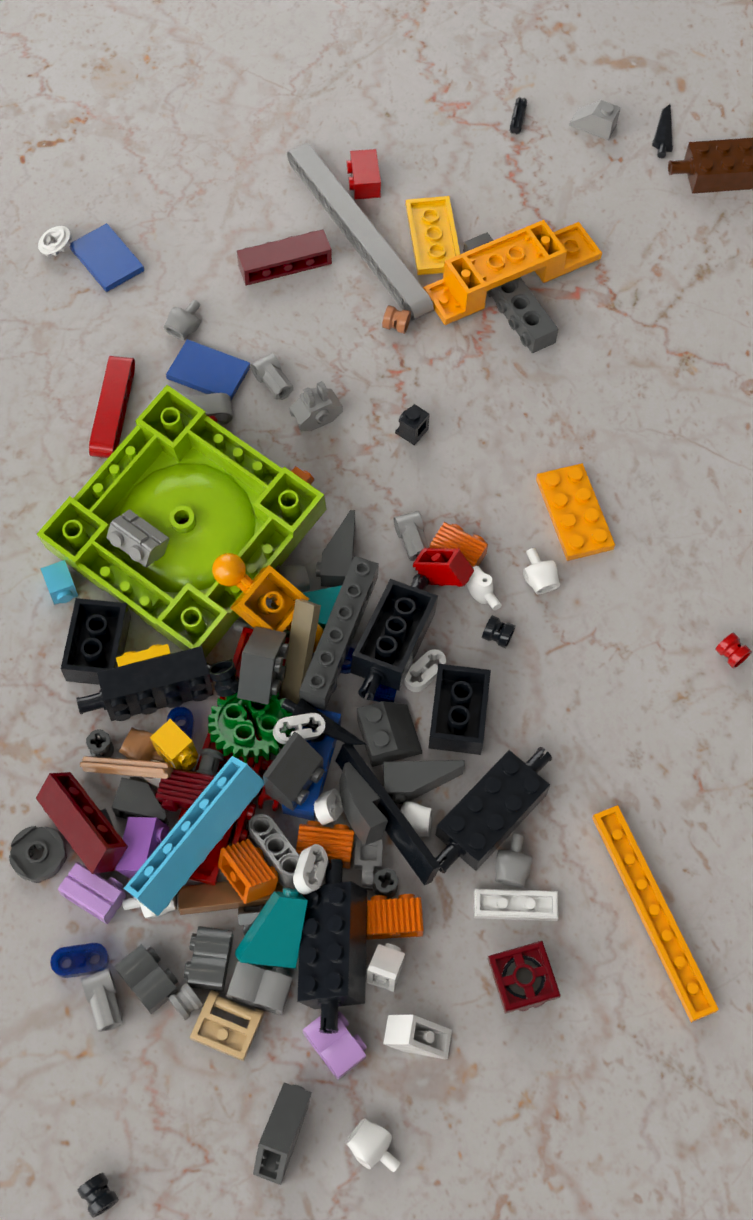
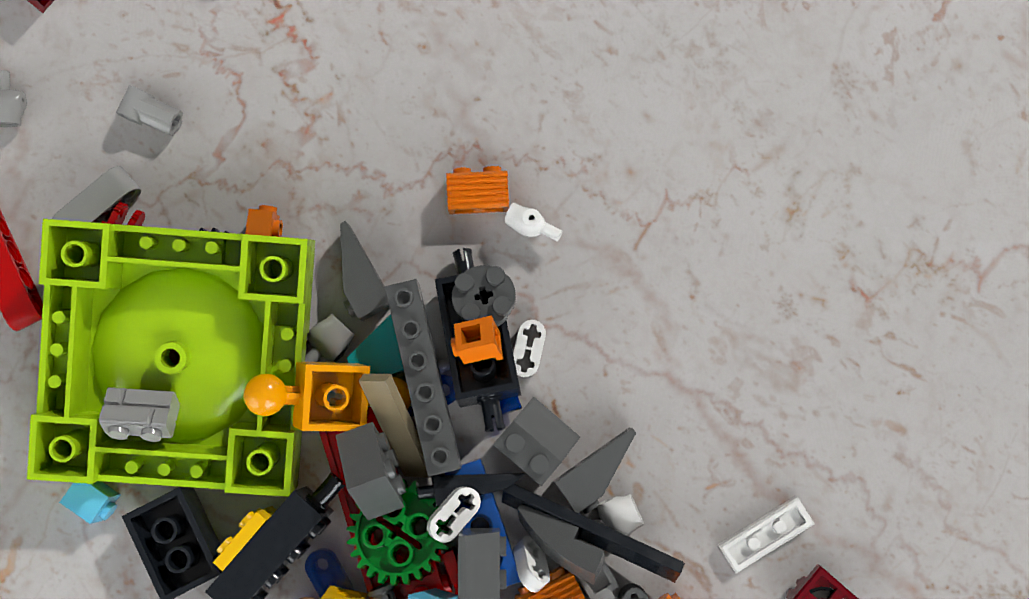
camera: 30 degrees left, 20 degrees up
(207, 369) = (73, 146): blue tile -> none
(224, 675) = (338, 504): black wheel -> none
(316, 407) = (222, 122): light grey hinge -> none
(393, 624) = (477, 340): none -> orange brick
(411, 530) = (416, 202): light grey piece -> none
(413, 424) = (338, 75): black brick -> none
(420, 593) = (486, 278): none -> dark grey plate
(444, 566) = (479, 228): red brick -> none
(459, 709) = (593, 374): black brick -> none
(492, 809) = (689, 459): black brick -> none
(498, 631) = (569, 262): black wheel -> none
(512, 865) = (741, 498): light grey piece -> none
(541, 574) = (578, 167): white piece -> none
(575, 512) = (567, 70): light orange plate -> none
(655, 914) = (899, 459): light orange plate -> none
(732, 648) = (818, 131): red wheel -> none

